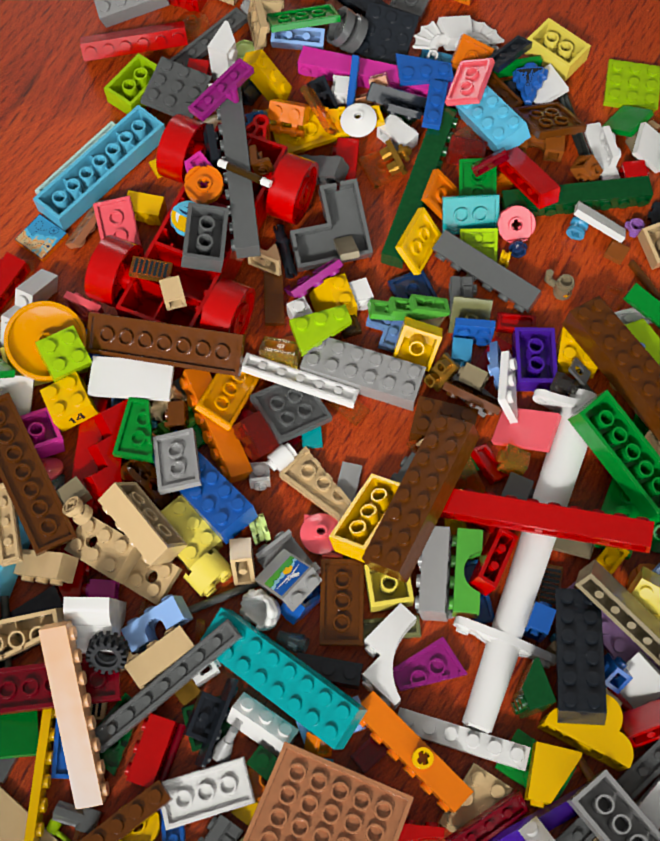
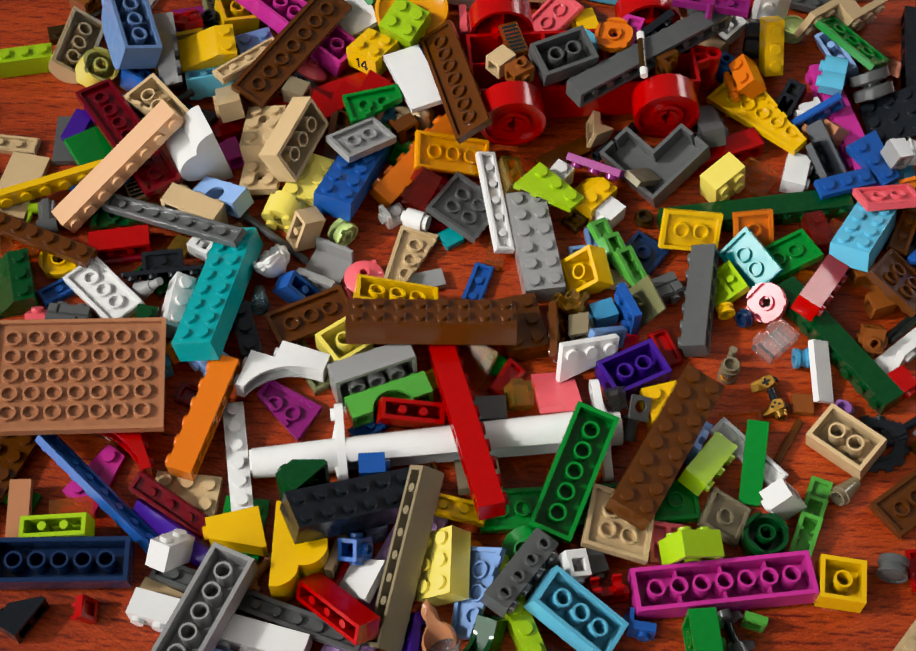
camera: 60 degrees right, 10 degrees down
(77, 510) = (281, 95): tan wheel -> none
(107, 662) = (175, 162): black tyre -> none
(198, 282) = (520, 70): none -> dark orange brick
(288, 579) = (305, 265): light grey panel -> none
(319, 110) = (766, 97): clear orange tile -> none
(324, 51) = (832, 75): none -> medium azure brick
(361, 126) = (780, 132): white dish -> none
(377, 271) = (643, 218): none -> dark brown plate
(378, 443) = (478, 282): none -> blue tile
(382, 189) = (723, 179): none -> light yellow brick
(390, 152) = (768, 179): pearl gold hips -> none
(415, 756) = (197, 412): yellow bush -> none
(432, 50) = (897, 153): none -> light grey brick
(489, 162) = (810, 248): dark red slope -> none
(552, 238) = (775, 340): none -> clear brick
(614, 270) = (777, 407): none -> pearl gold piece

